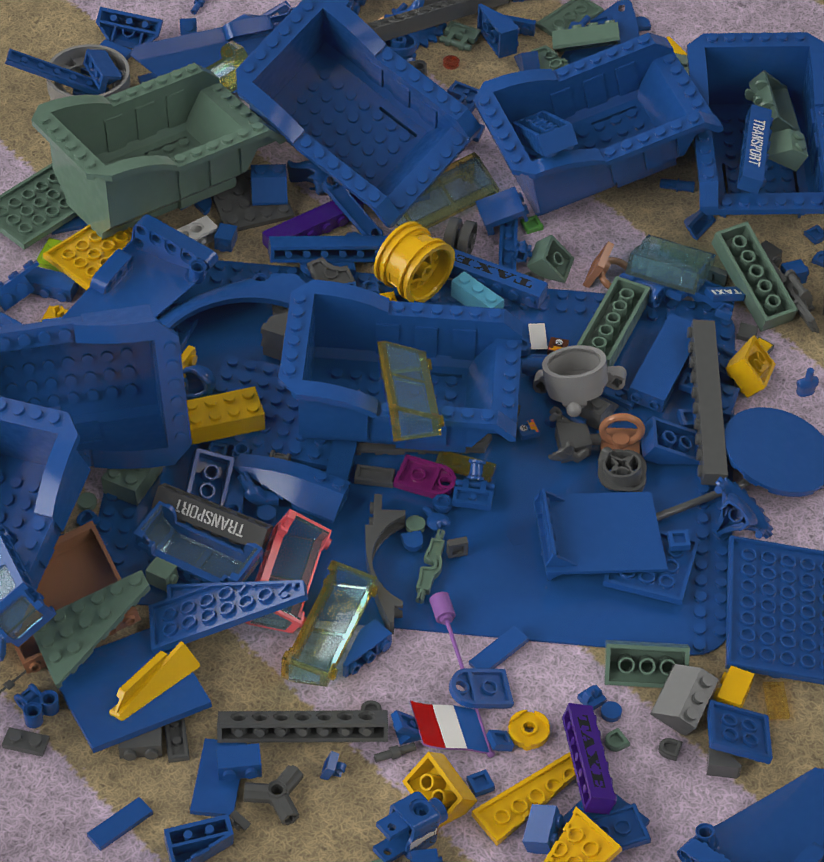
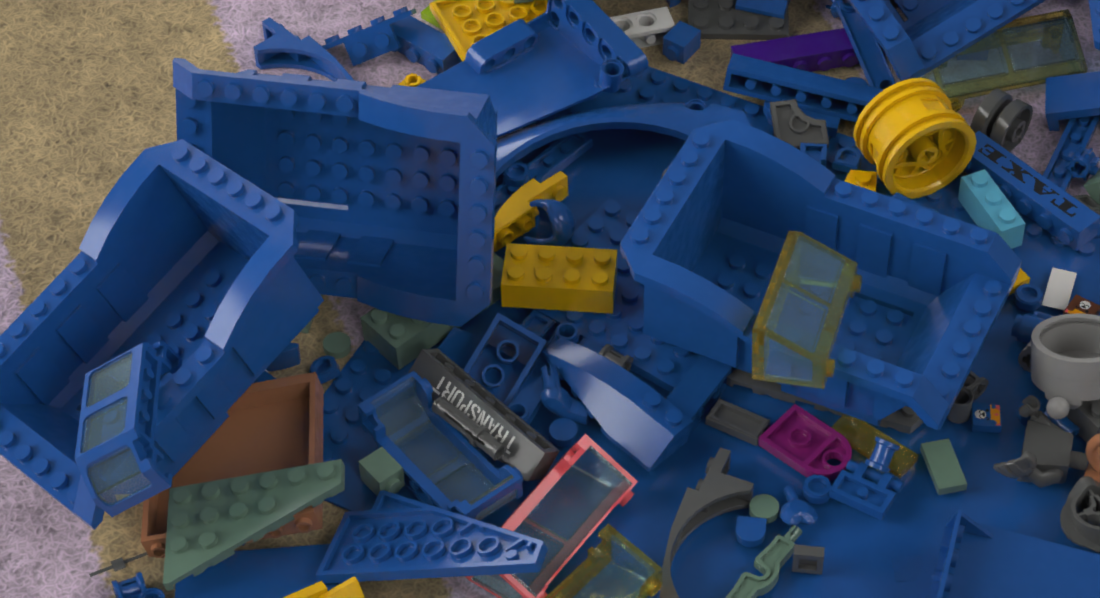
camera: 25 degrees right, 0 degrees up
(208, 527) = (478, 435): none -> dark grey pin
(514, 467) = (943, 466): none -> sand green tile

